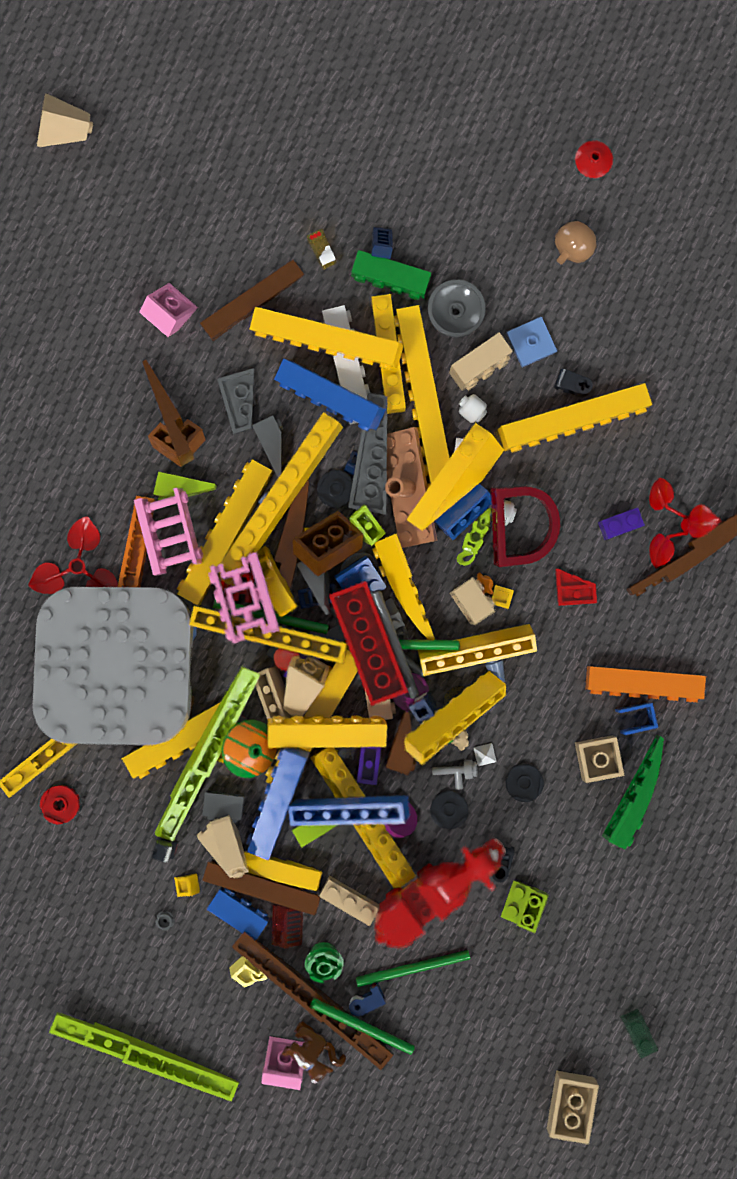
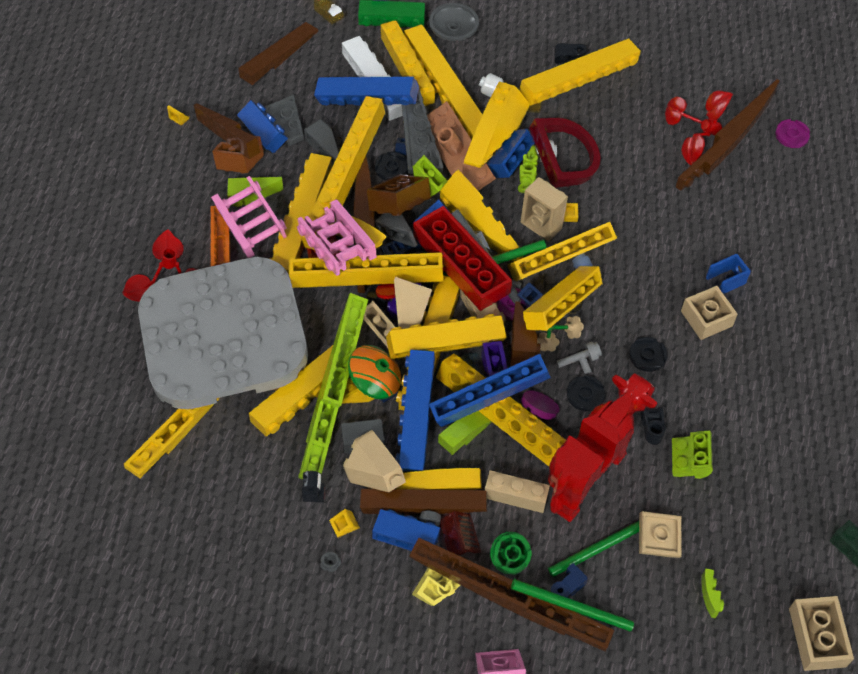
camera: 15 degrees left, 30 degrees down
(49, 808) = (186, 468): red plate -> none
(125, 363) = (176, 115): none -> yellow slope
(167, 309) = (205, 71): bright pink slope -> none
(209, 407) = (263, 125): none -> blue brick
(263, 905) = (430, 516): none -> dark grey tile
(308, 1053) = (525, 647): reddish brown animal -> none
(326, 337) = (351, 54): yellow brick -> none
(466, 975) = (659, 534): none -> tan plate
(481, 362) = (487, 50): tan brick -> none
(484, 754) = (603, 339): white slope -> none
(491, 1047) = (711, 596): none -> lime slope
(531, 342) = (524, 37): medium blue plate -> none
(574, 590) = (630, 194): red wing -> none
(621, 524) = (650, 137): dark purple brick -> none
(636, 799) = (757, 342): green wedge -> none
(645, 682) = (717, 247): orange brick -> none

